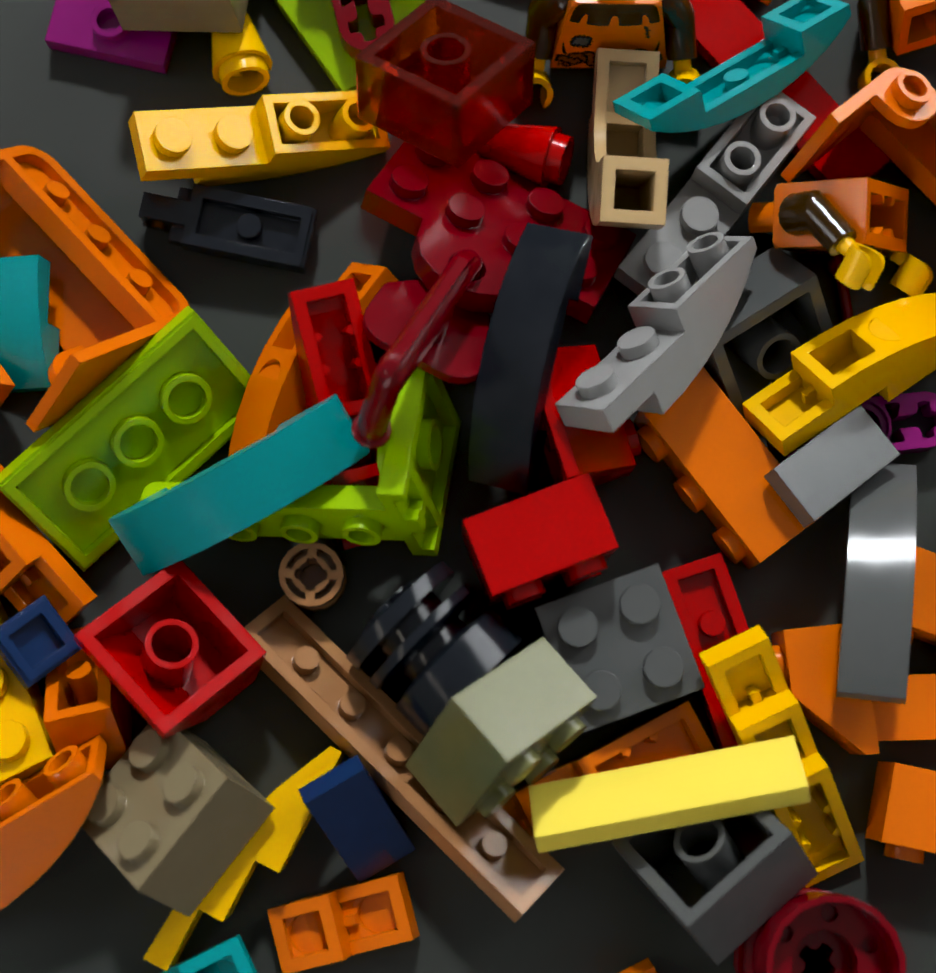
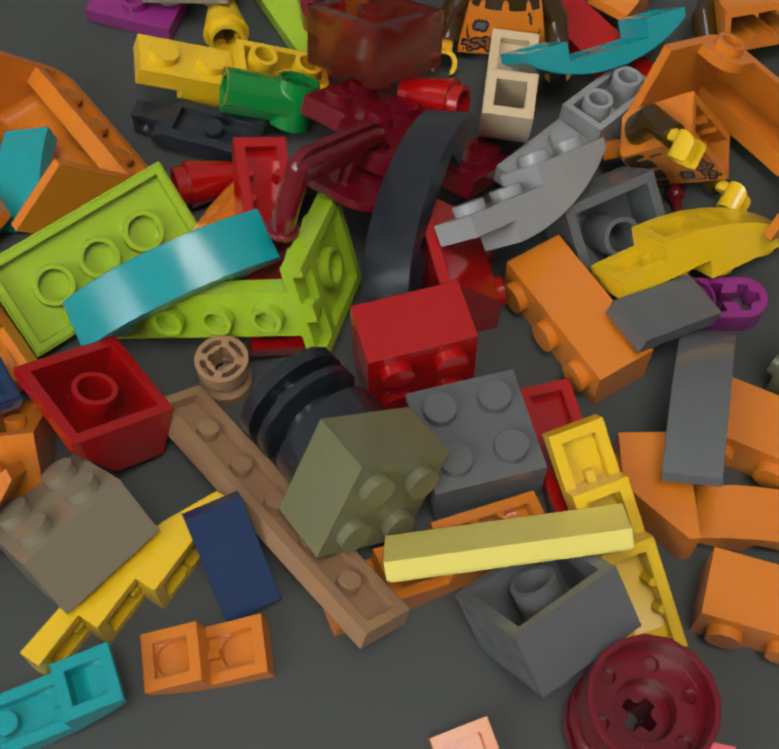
camera: 10 degrees right, 20 degrees down
(247, 304) = (201, 180): none -> red cone
(321, 180) = (267, 97): none -> green piece

